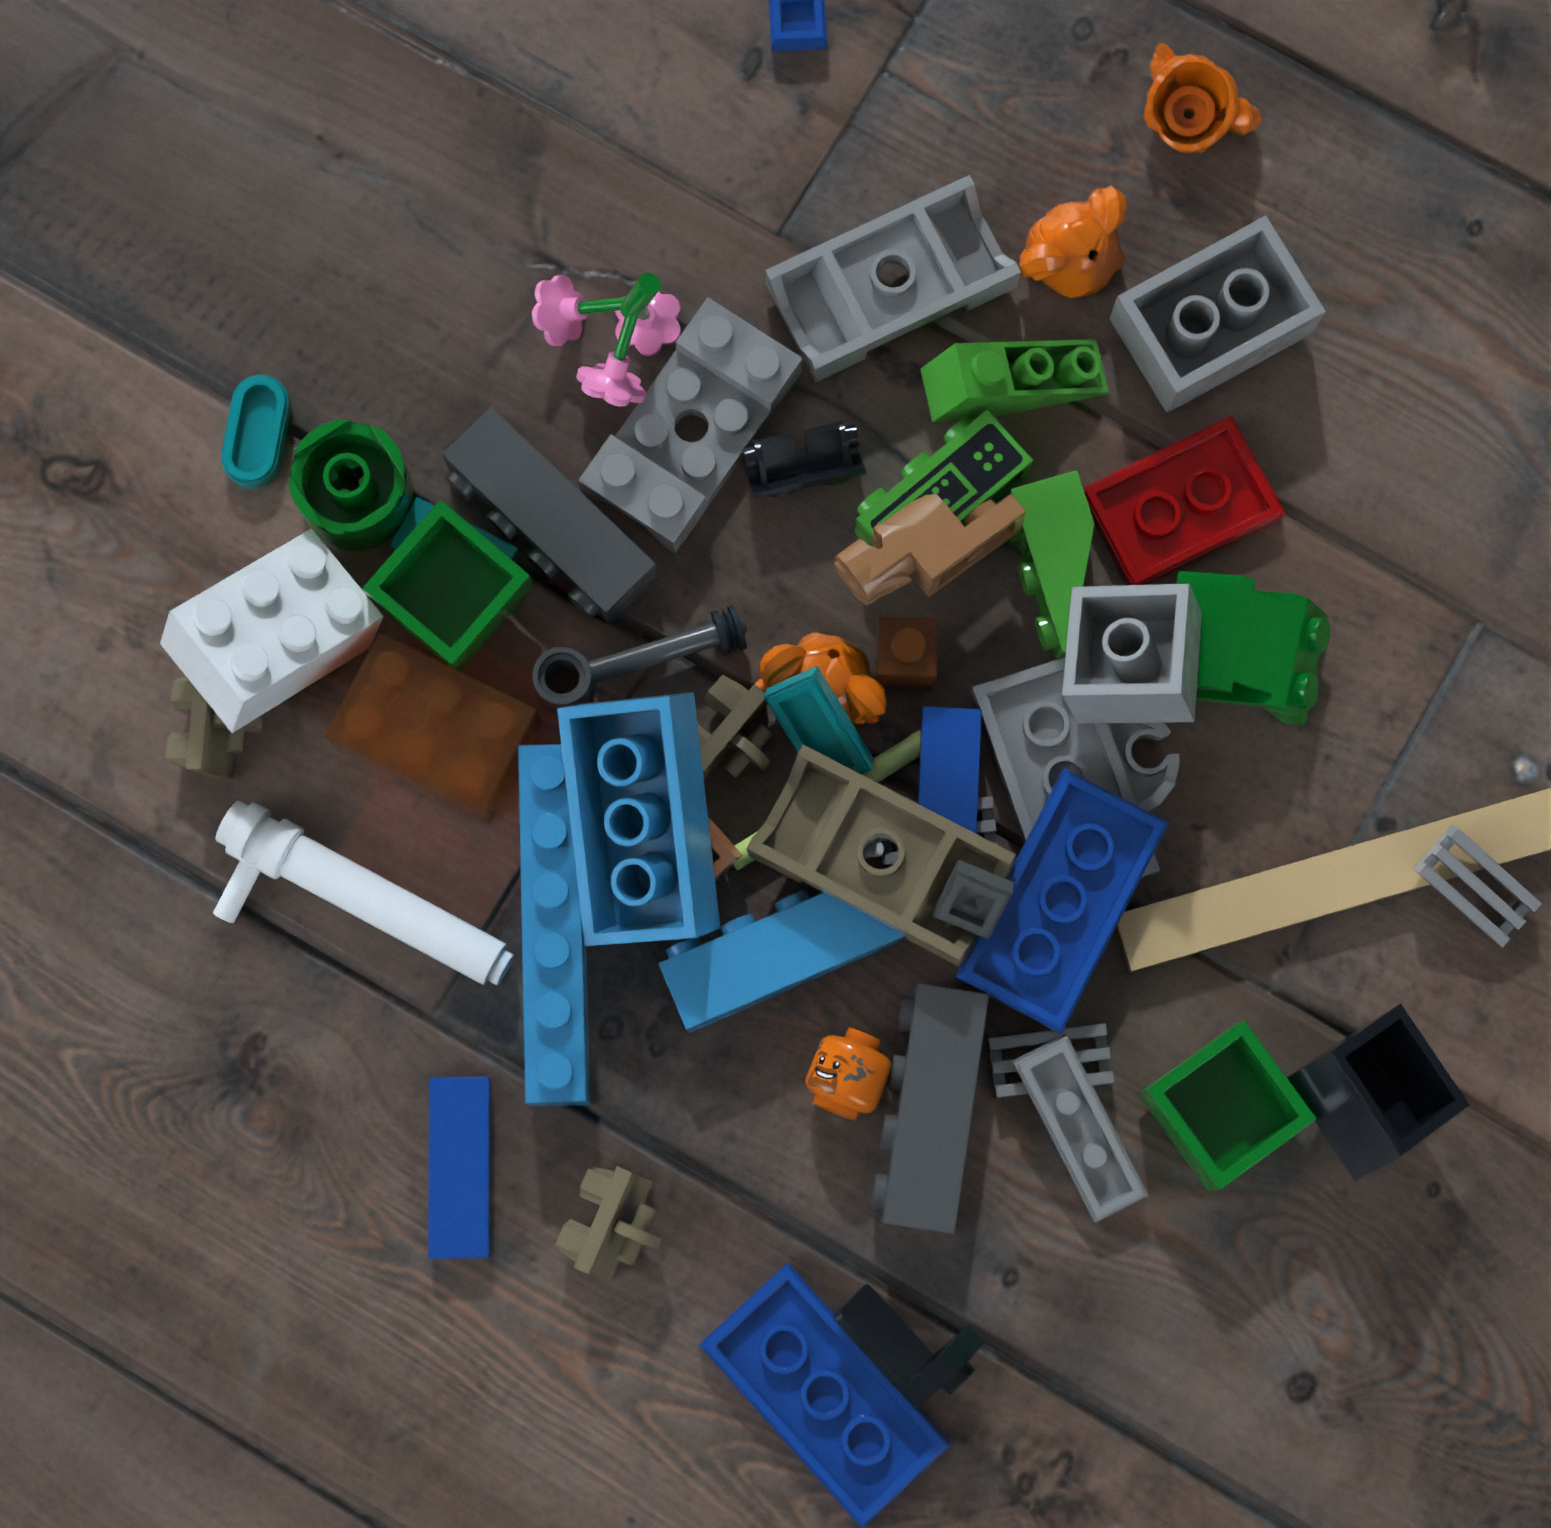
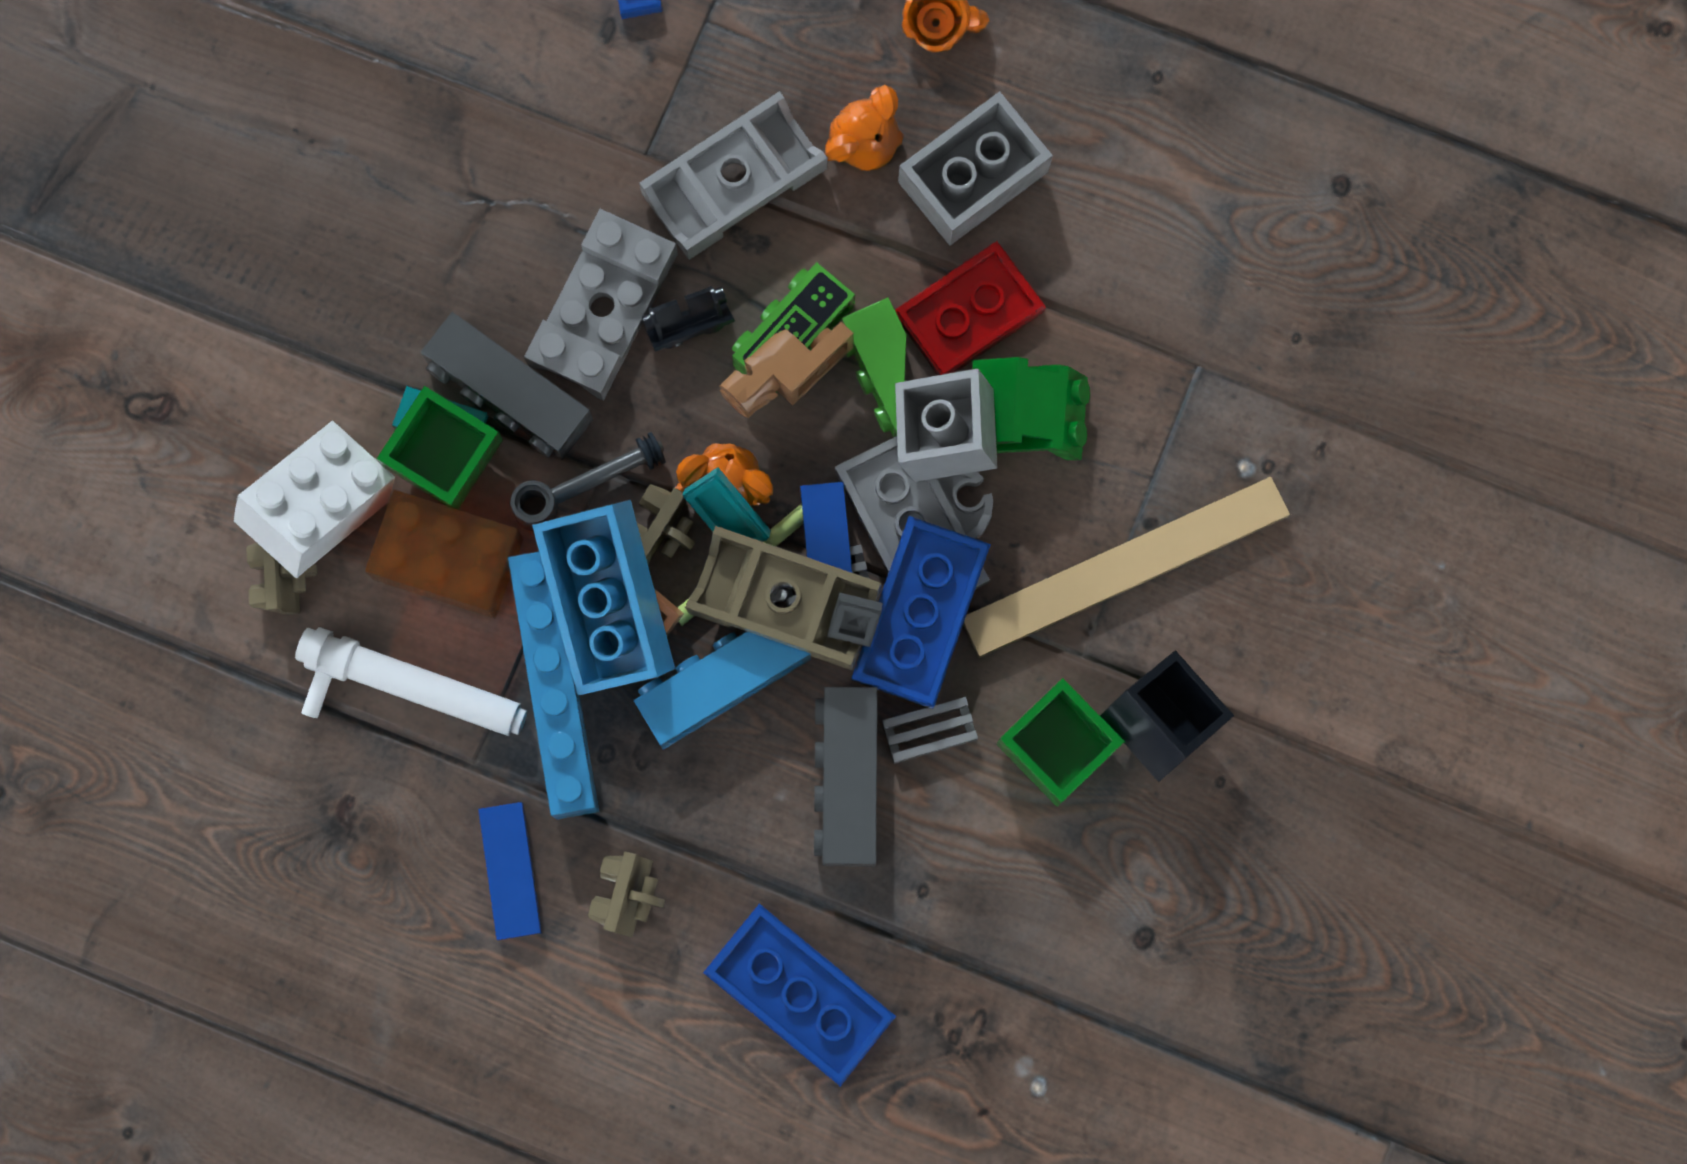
camera: 10 degrees left, 0 degrees up
(256, 432) = (280, 355): teal tile -> none
(344, 452) = (372, 365): green brick -> none
(644, 322) = (556, 231): bright pink plant -> none
(848, 1074) = (783, 760): orange head -> none
(901, 1353) = (849, 955): black bracket -> none
(906, 653) = (783, 449): reddish brown brick -> none
(1011, 377) = (832, 235): bright green slope -> none
(1080, 1128) = (957, 775): light grey tile -> none
(1511, 916) = (1250, 576): light grey tile -> none

